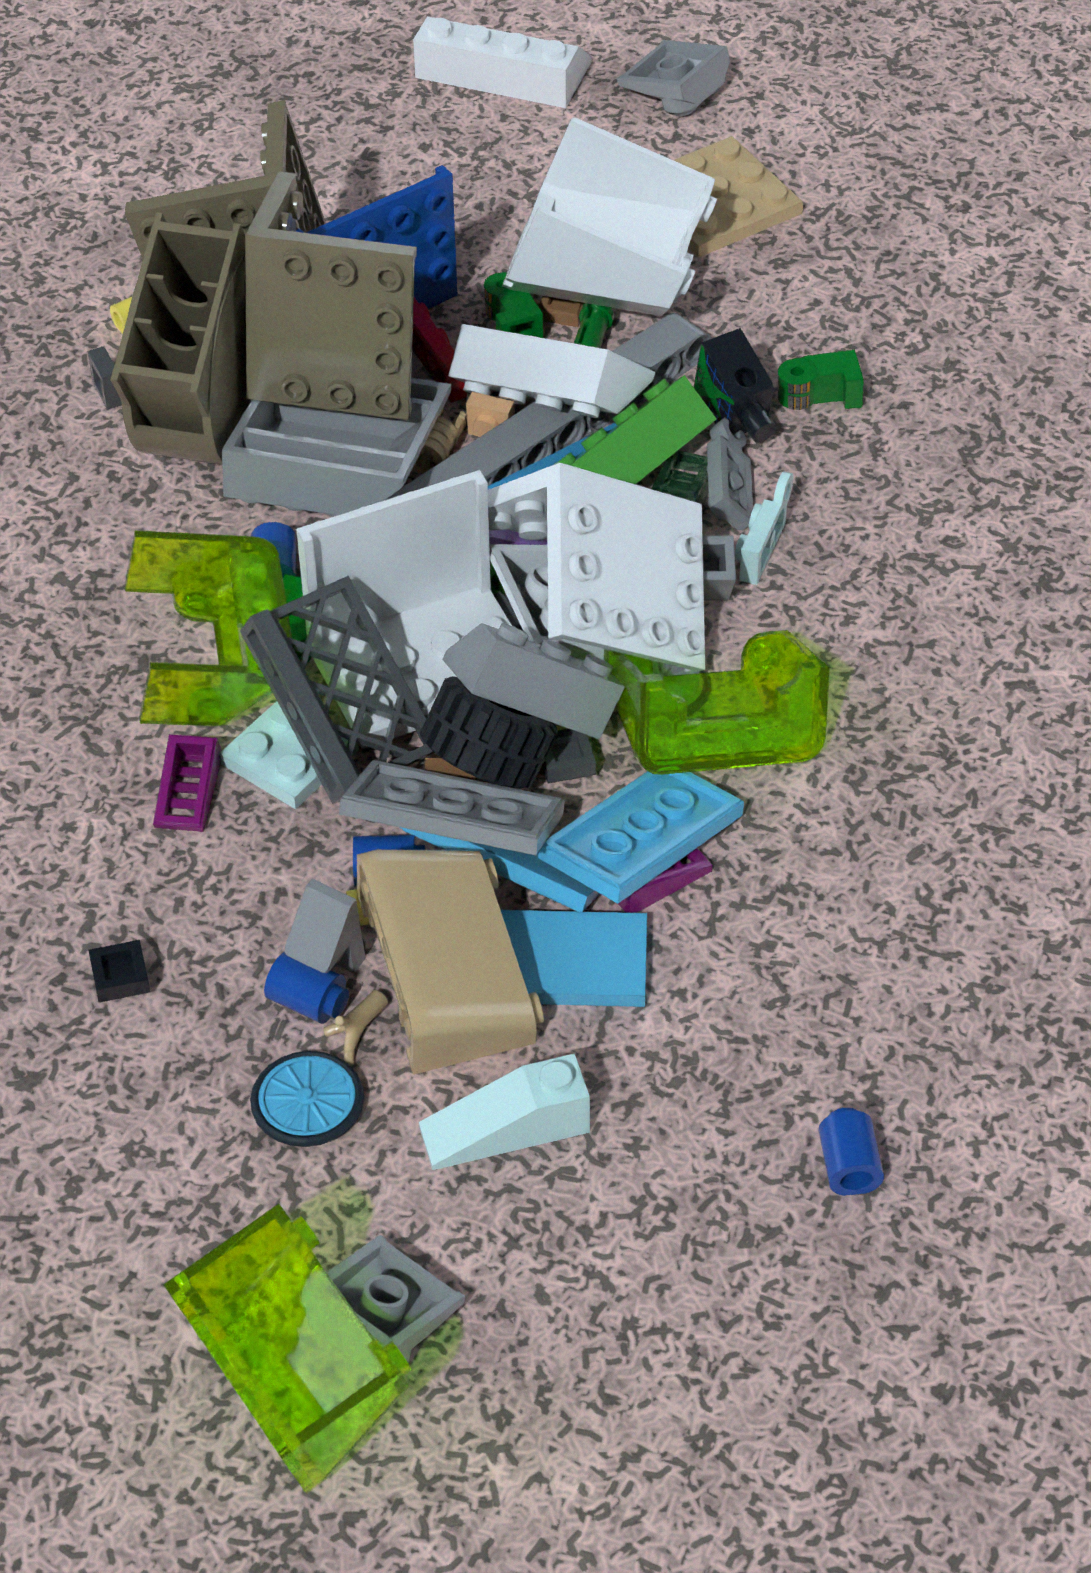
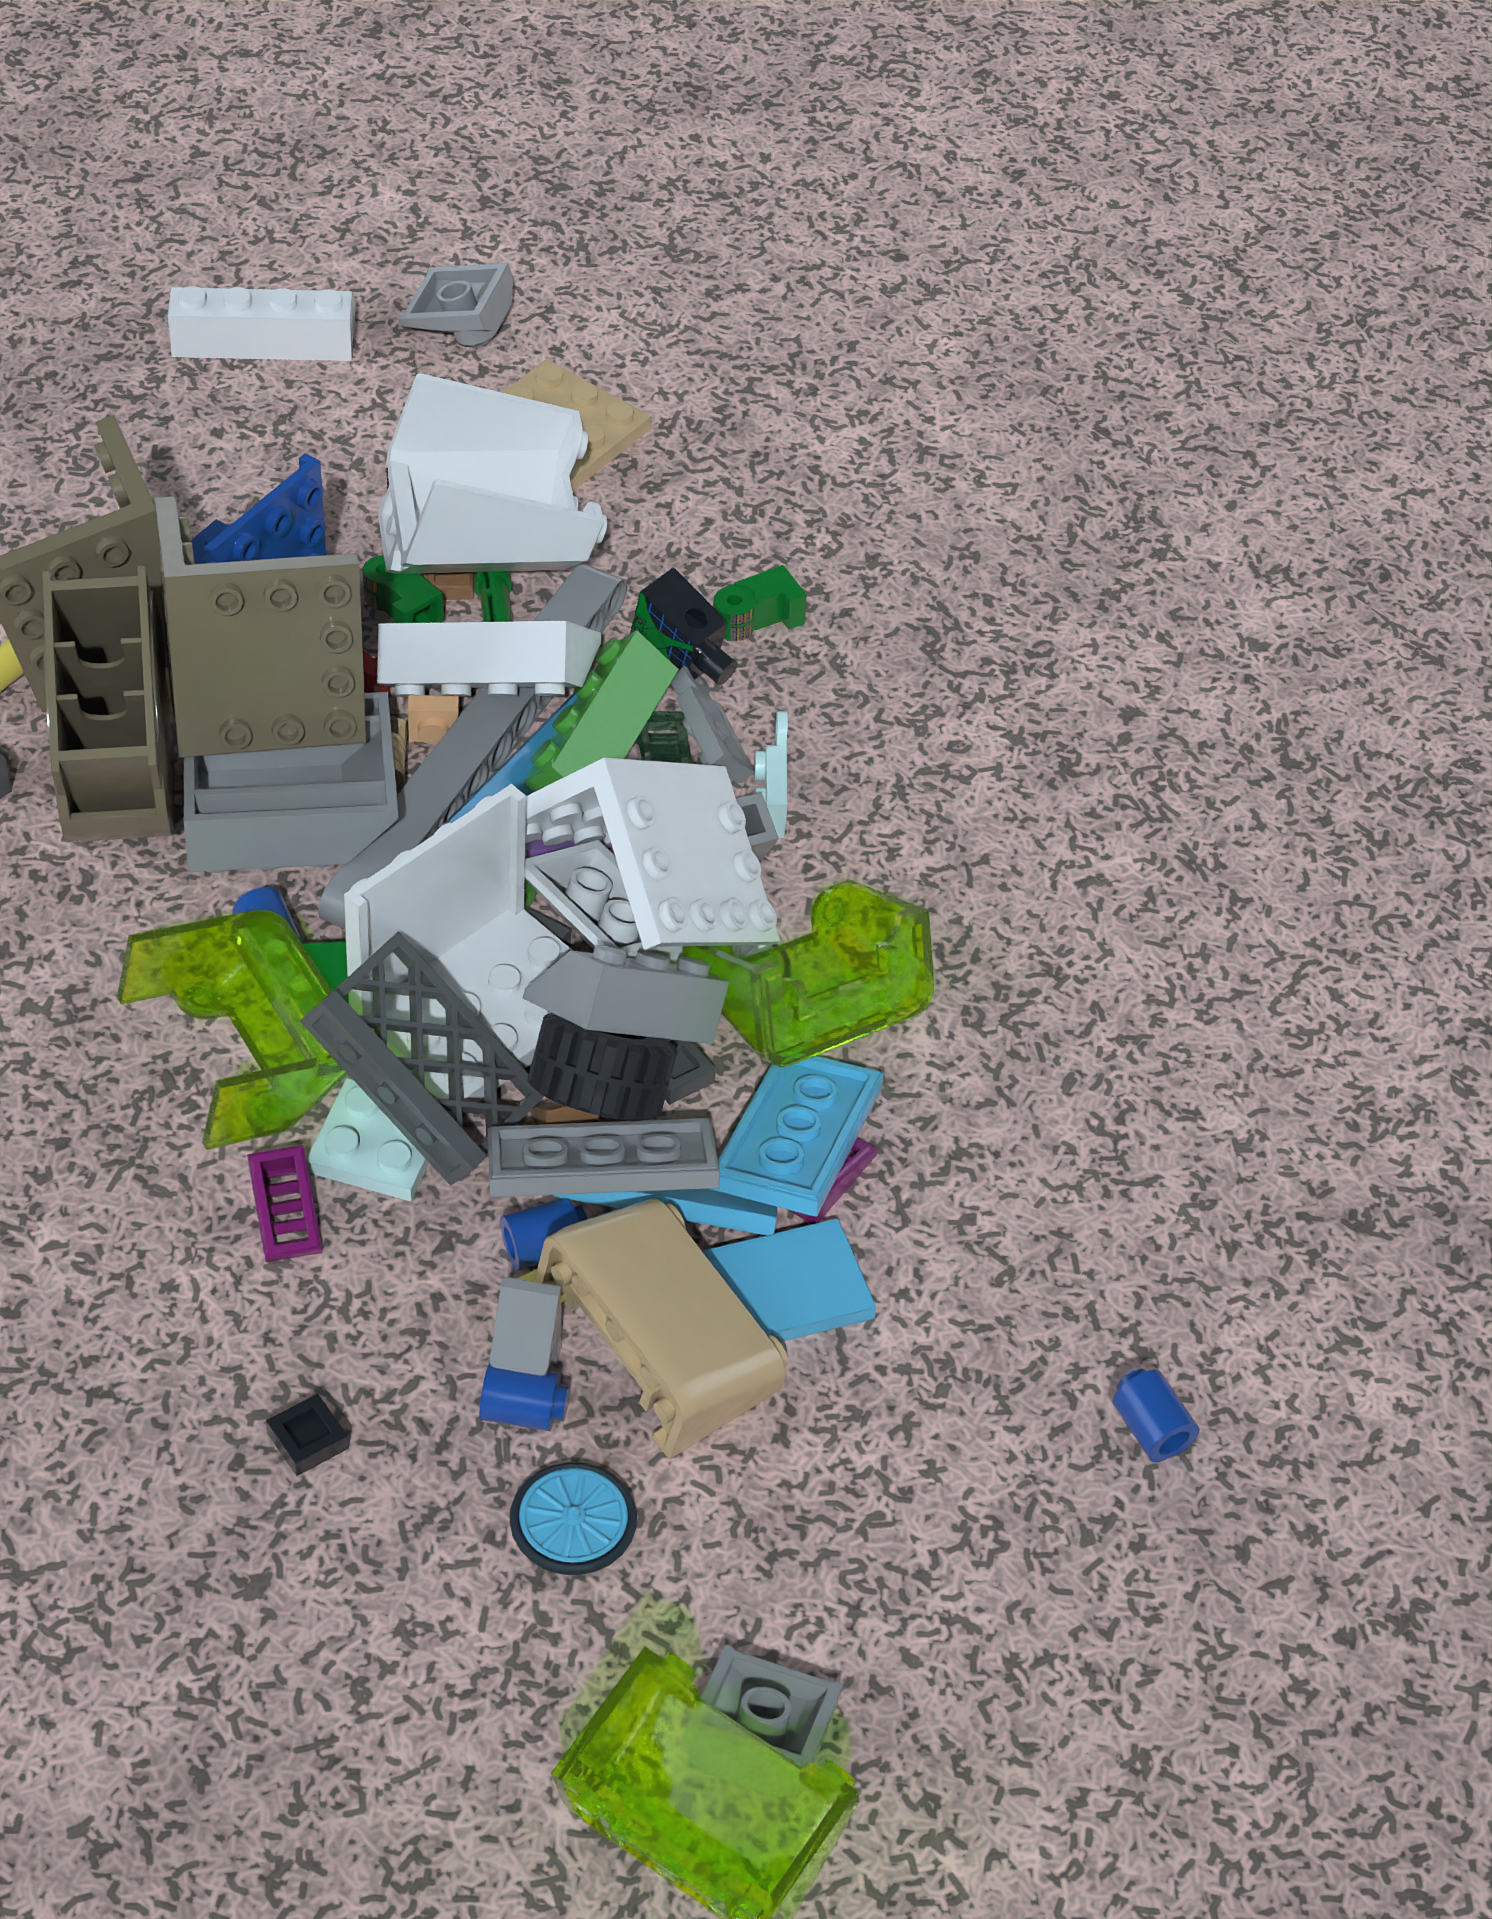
camera: 25 degrees left, 0 degrees up
(356, 1021) = (587, 1419): tan bar -> none
(512, 1113) = (798, 1474): light aqua slope -> none

